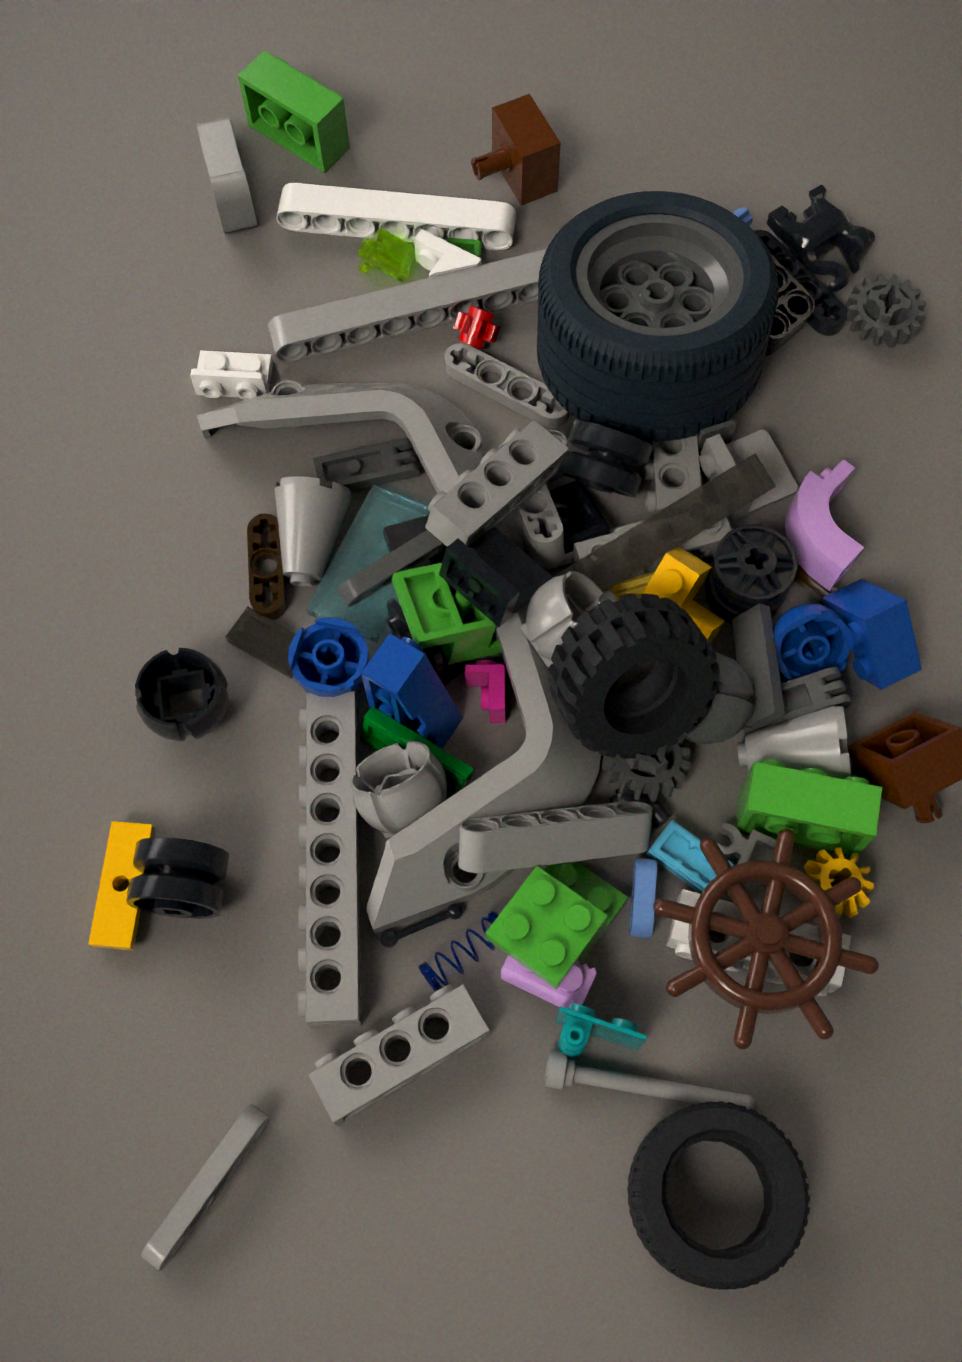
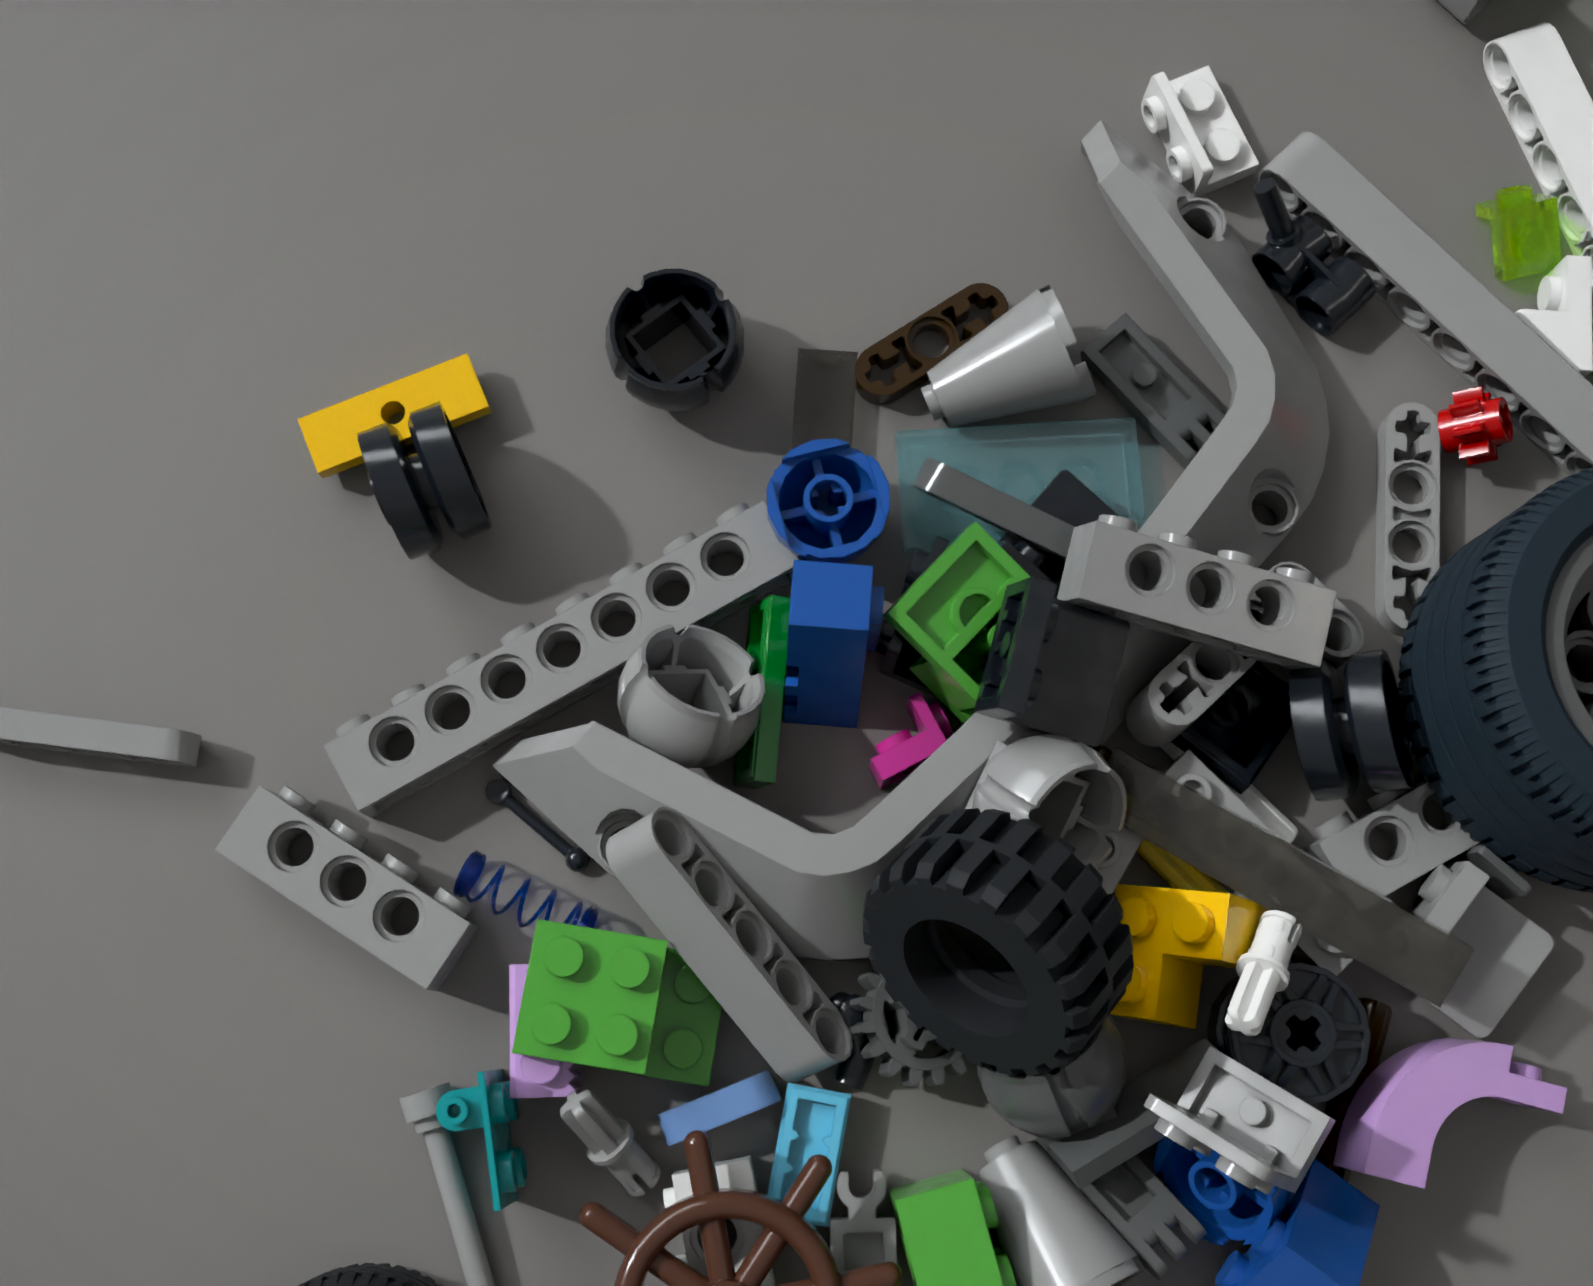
camera: 60 degrees right, 10 degrees up
(335, 365) = (1295, 266): none -> black beam
(633, 966) = (609, 1141): none -> light grey axle
(715, 559) = (1263, 971): none -> white axle
(790, 604) = (1254, 1124): none -> light grey bracket

